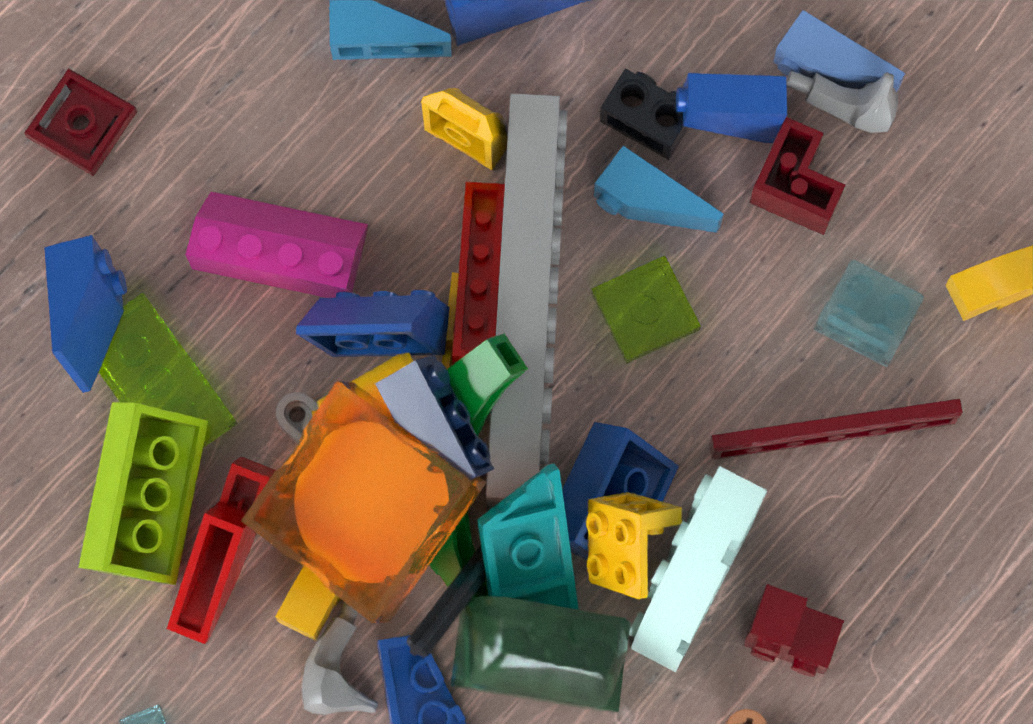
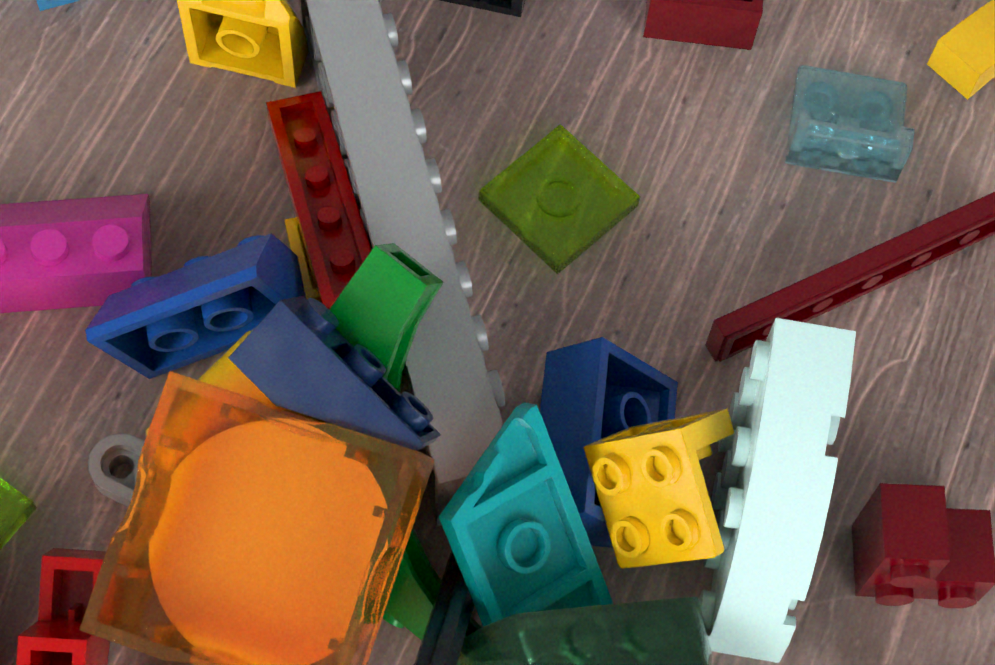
camera: 25 degrees left, 10 degrees down
(648, 195) = (516, 56): dark azure slope -> none

